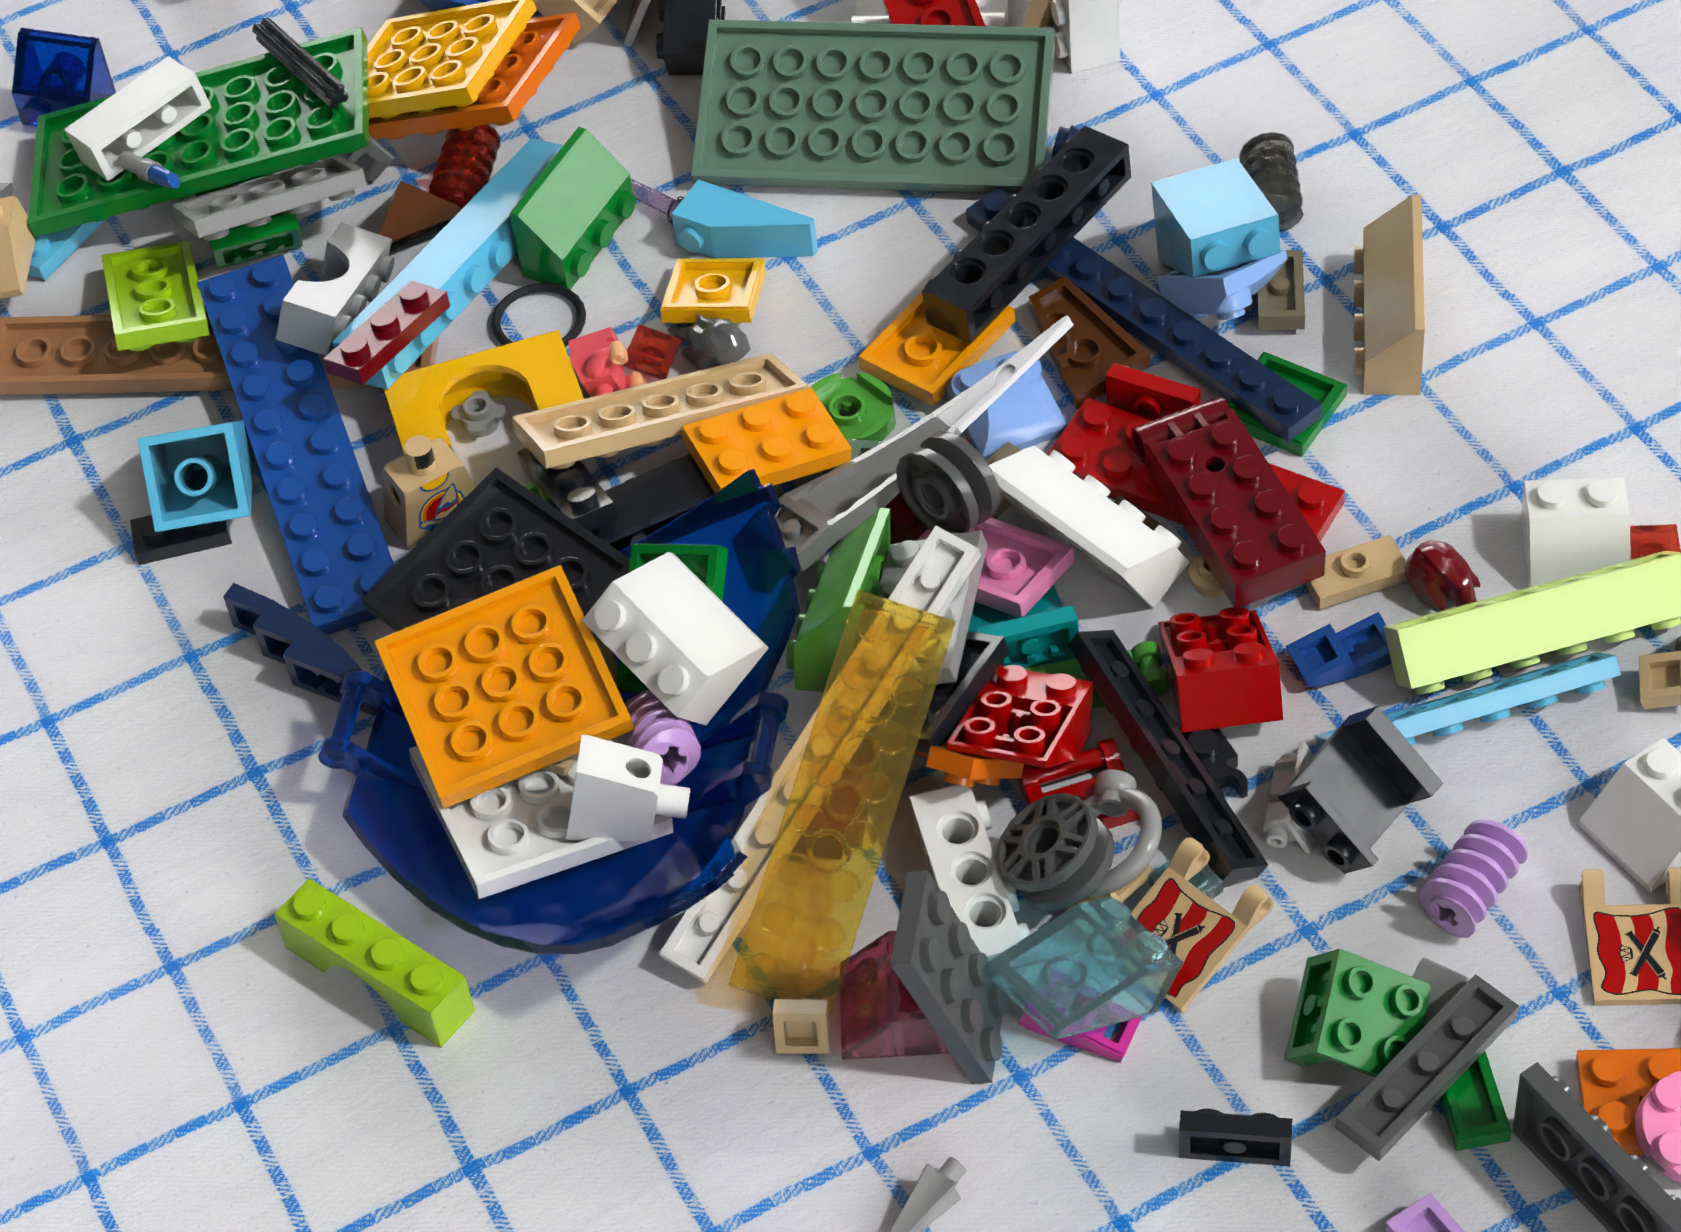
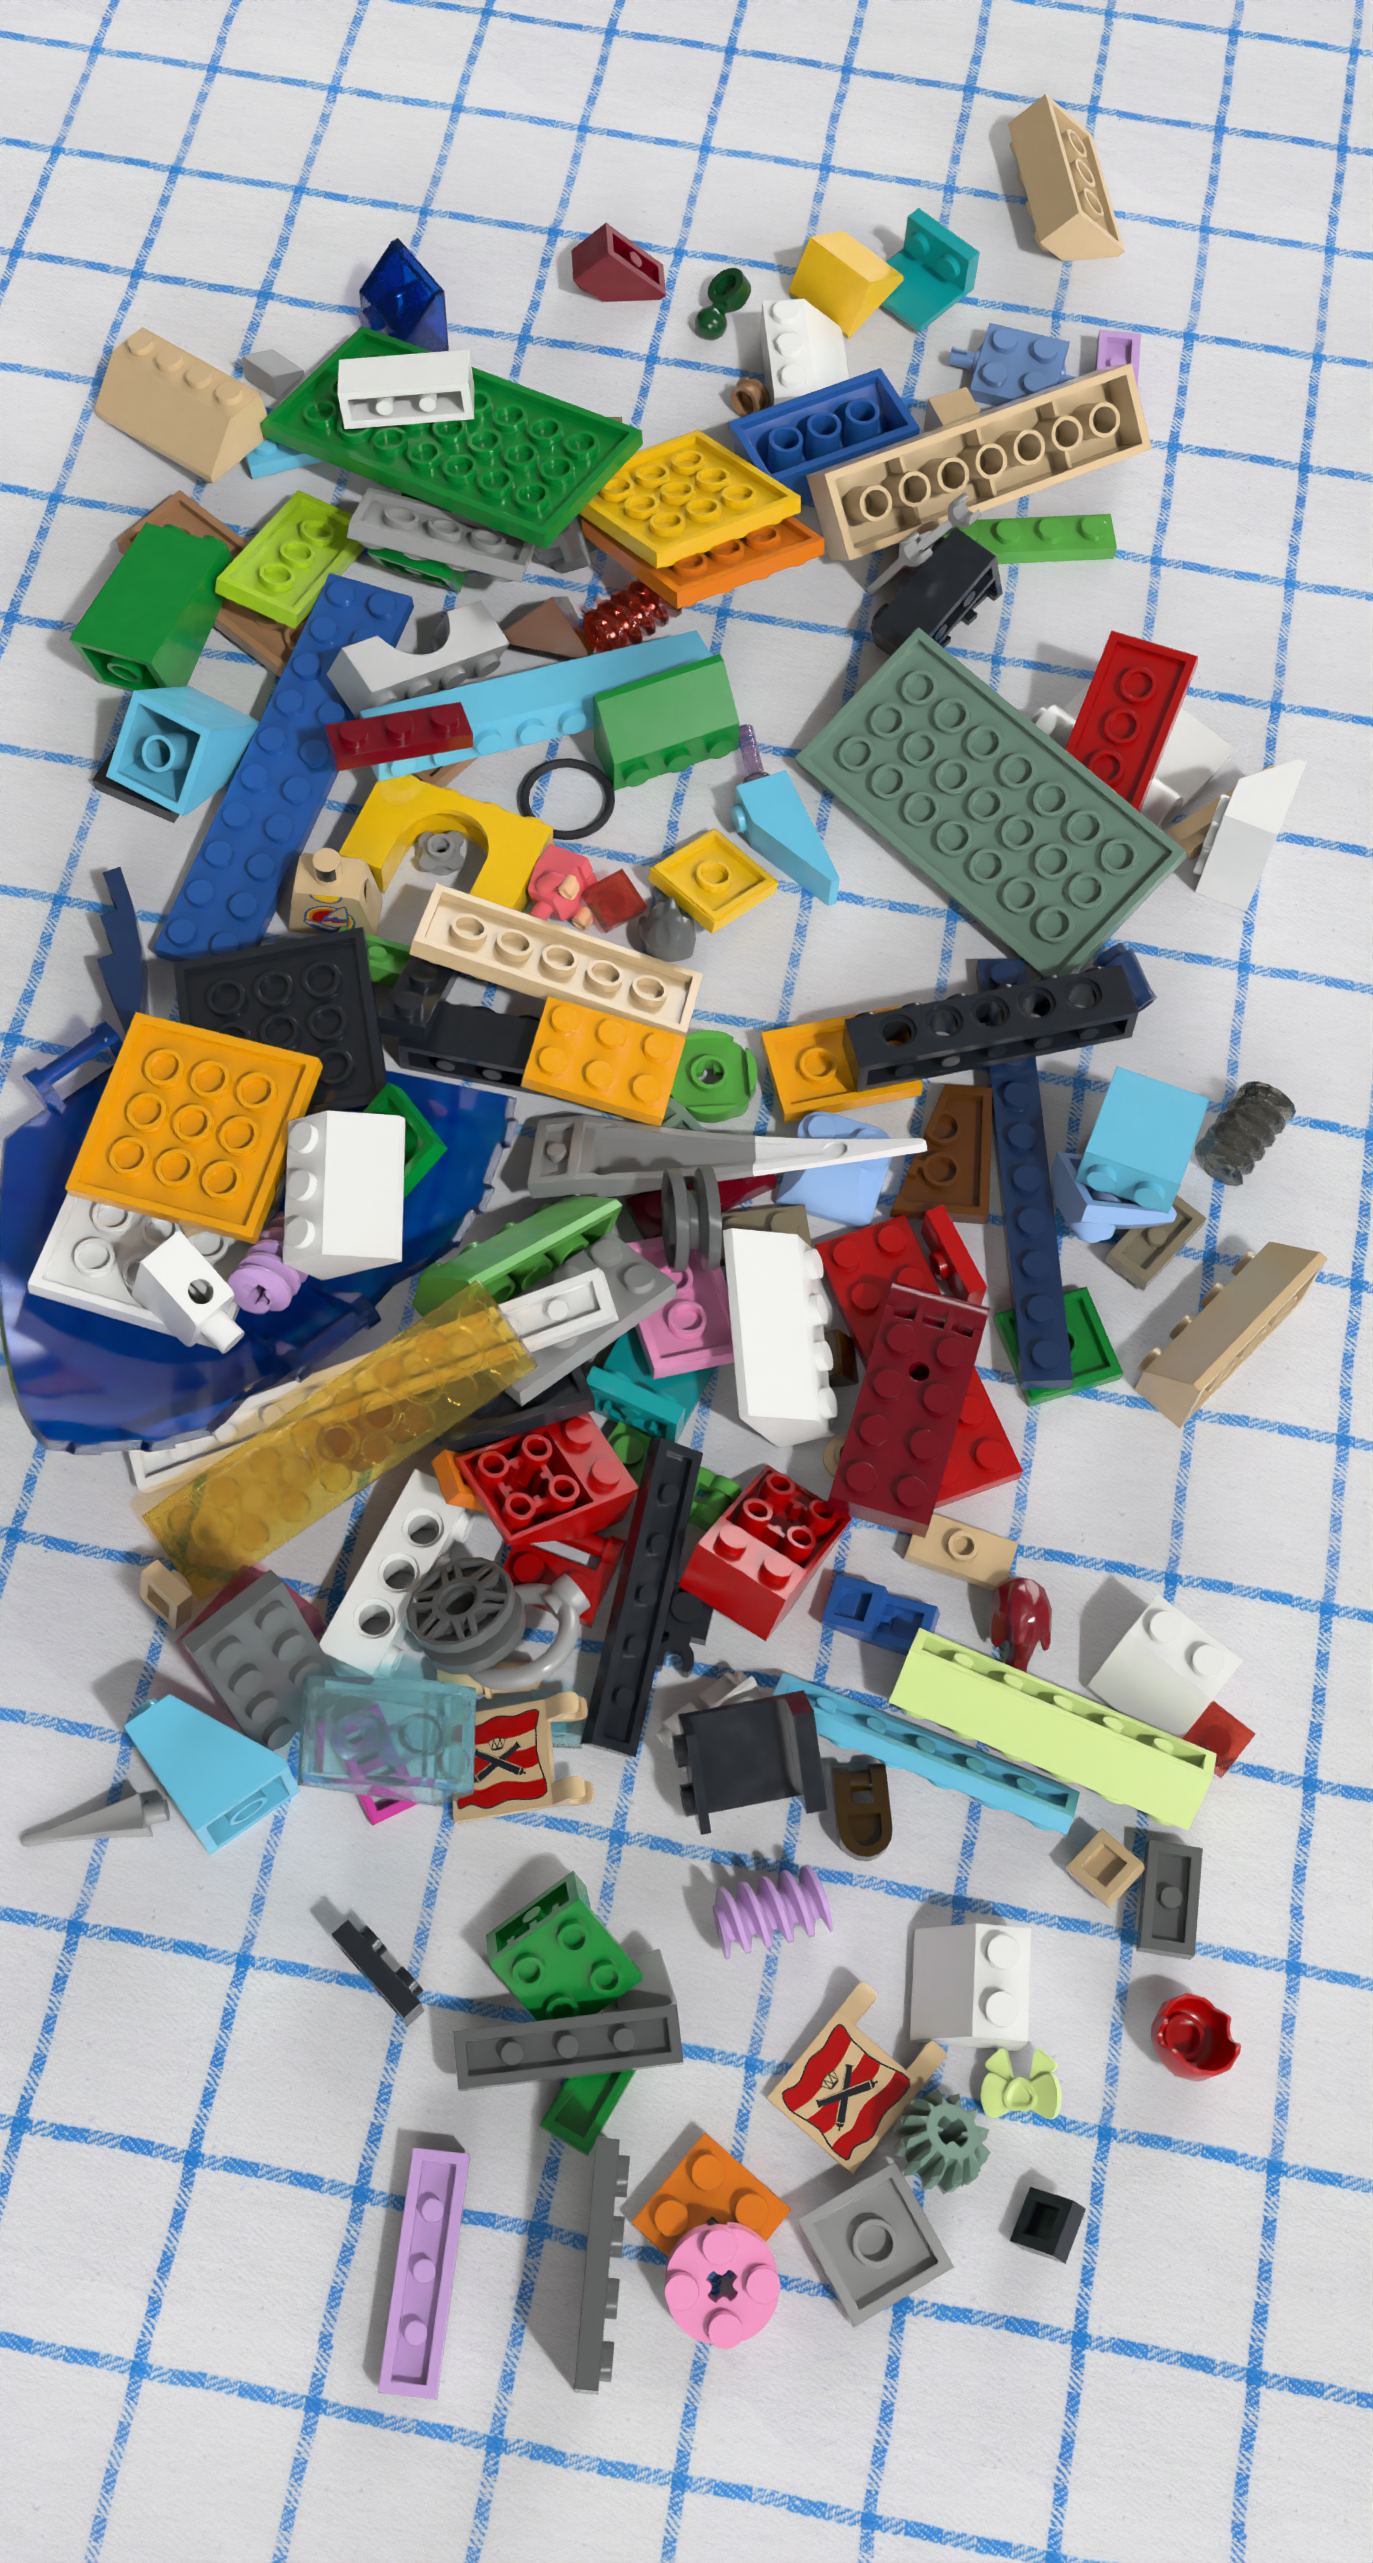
camera: 30 degrees right, 15 degrees up
(78, 400) = (154, 610): none -> green slope
(148, 170) = (372, 444): piece -> none
(300, 62) = (562, 430): black axle -> none
(964, 1099) = (209, 1769): none -> medium azure slope
(1479, 780) = (862, 1828): none -> dark brown plate

